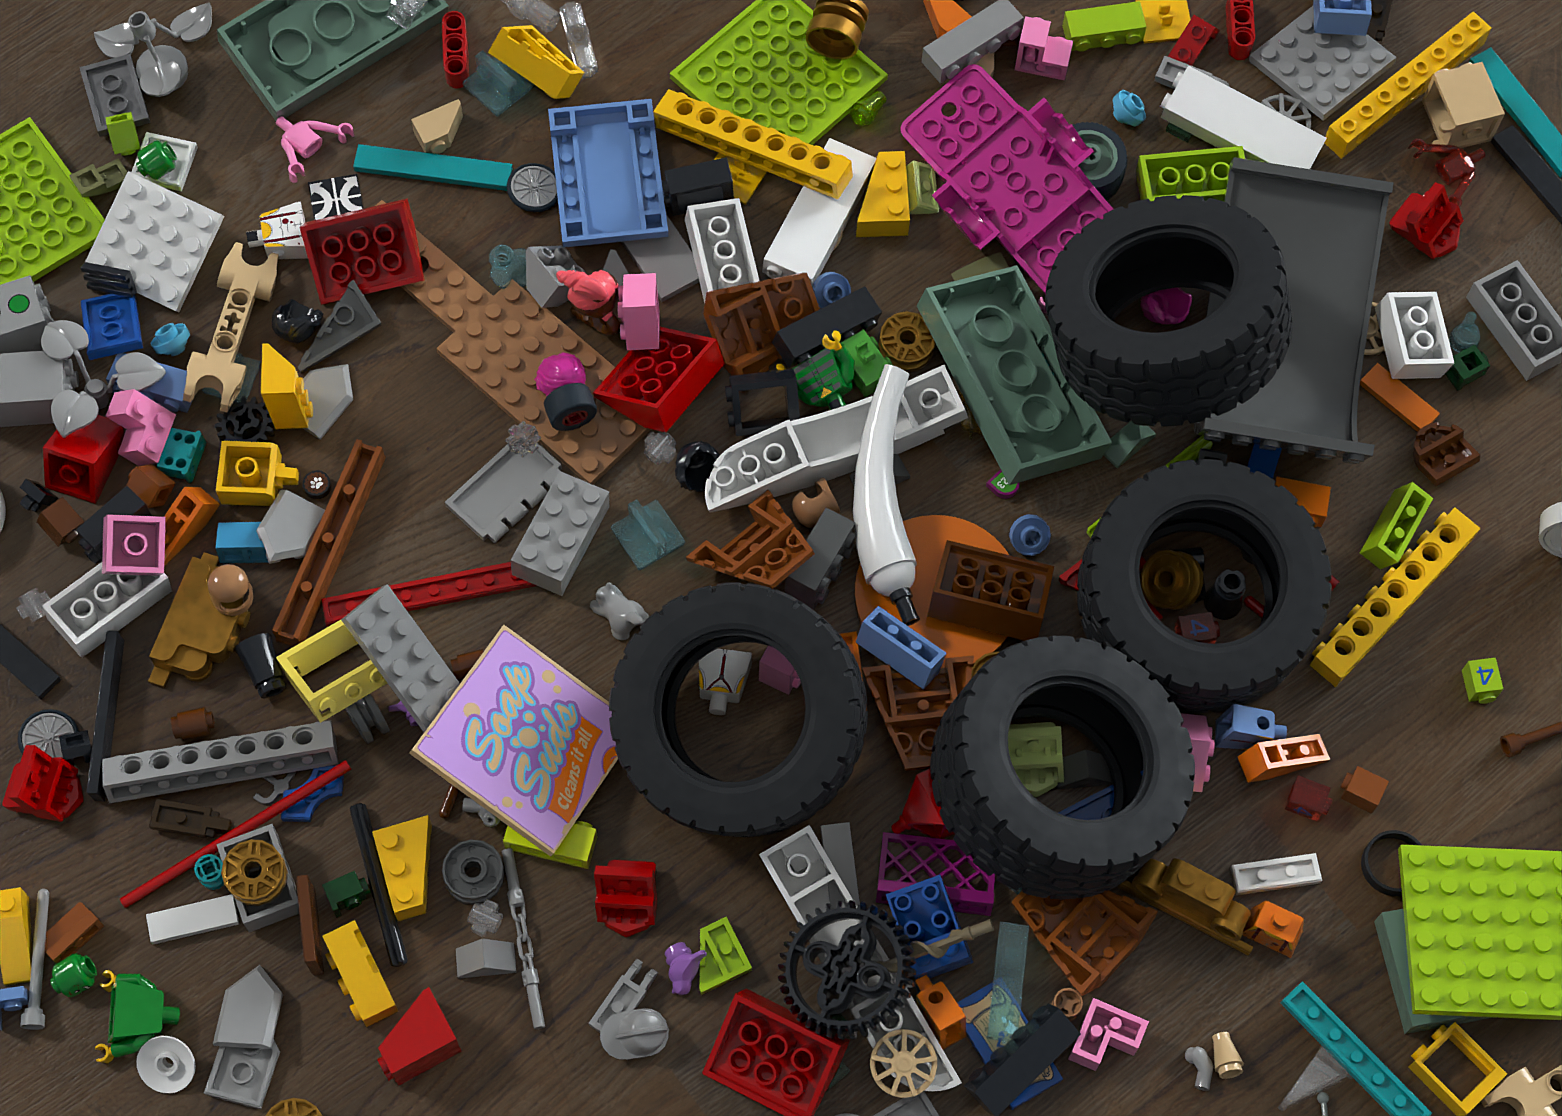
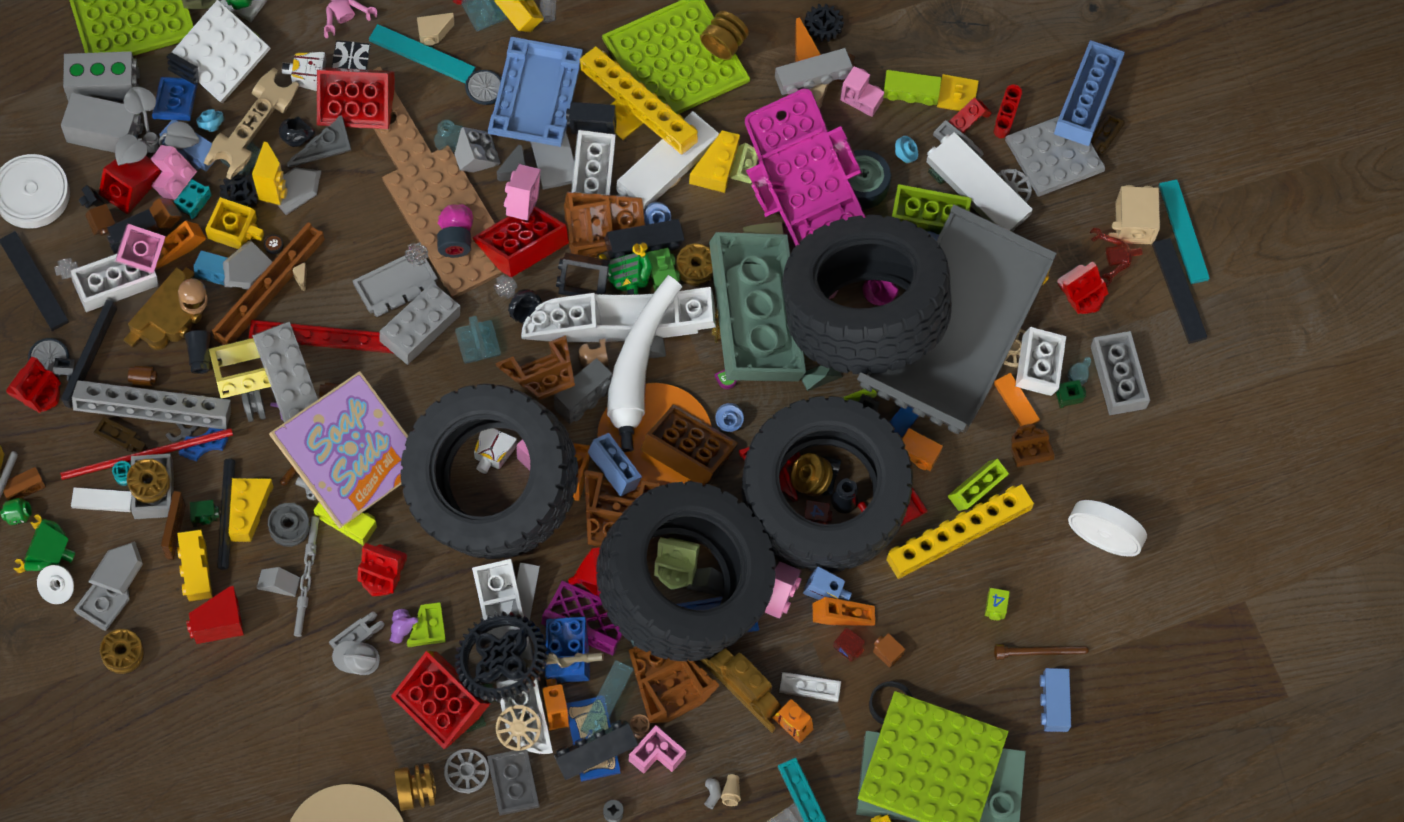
camera: 15 degrees right, 0 degrees up
(368, 517) = (300, 275): none -> tan slope
(485, 918) = (286, 555): clear gear -> none
(592, 298) = (493, 173): coral hair -> none
(620, 611) = (439, 382): light grey animal -> none
(865, 110) = (727, 98): clear neon green cone -> none
(1406, 85) = (1105, 188): yellow brick -> none

